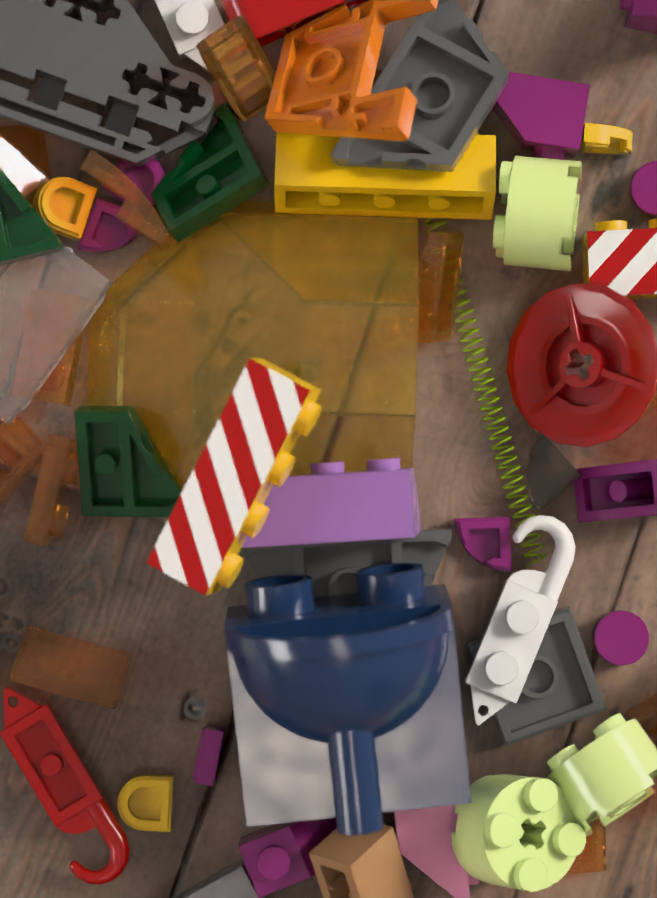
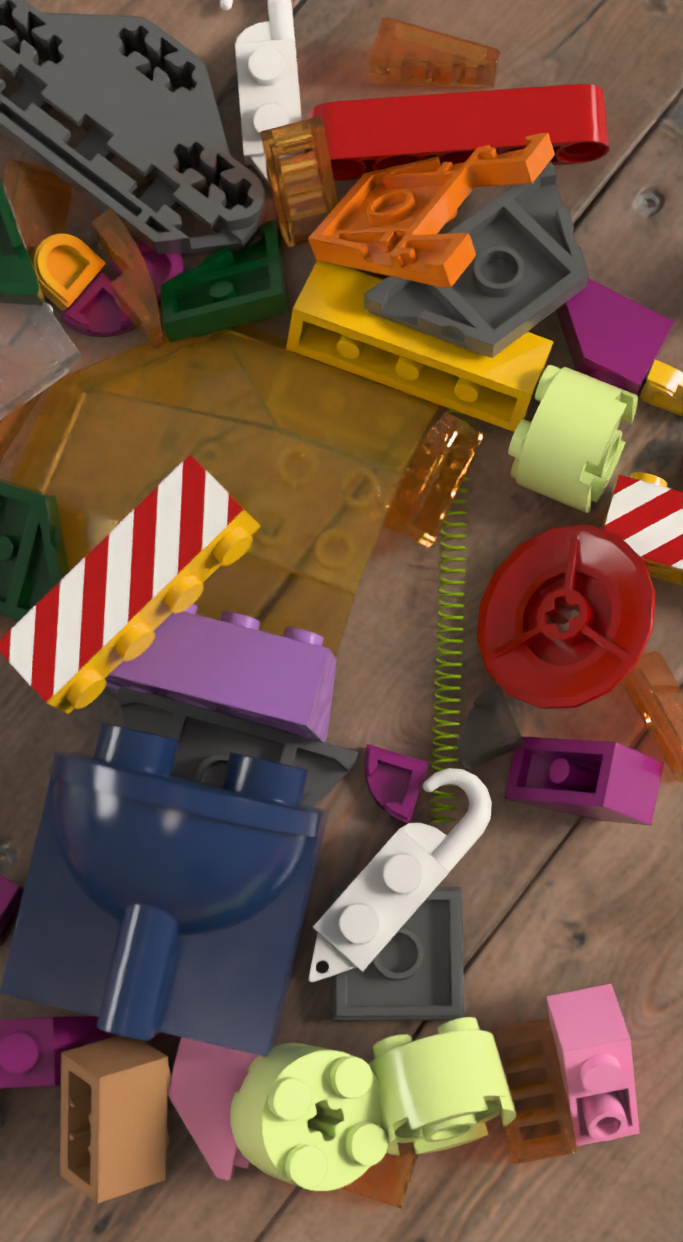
camera: 20 degrees right, 10 degrees down
(620, 637) = (508, 943): magenta tile -> none

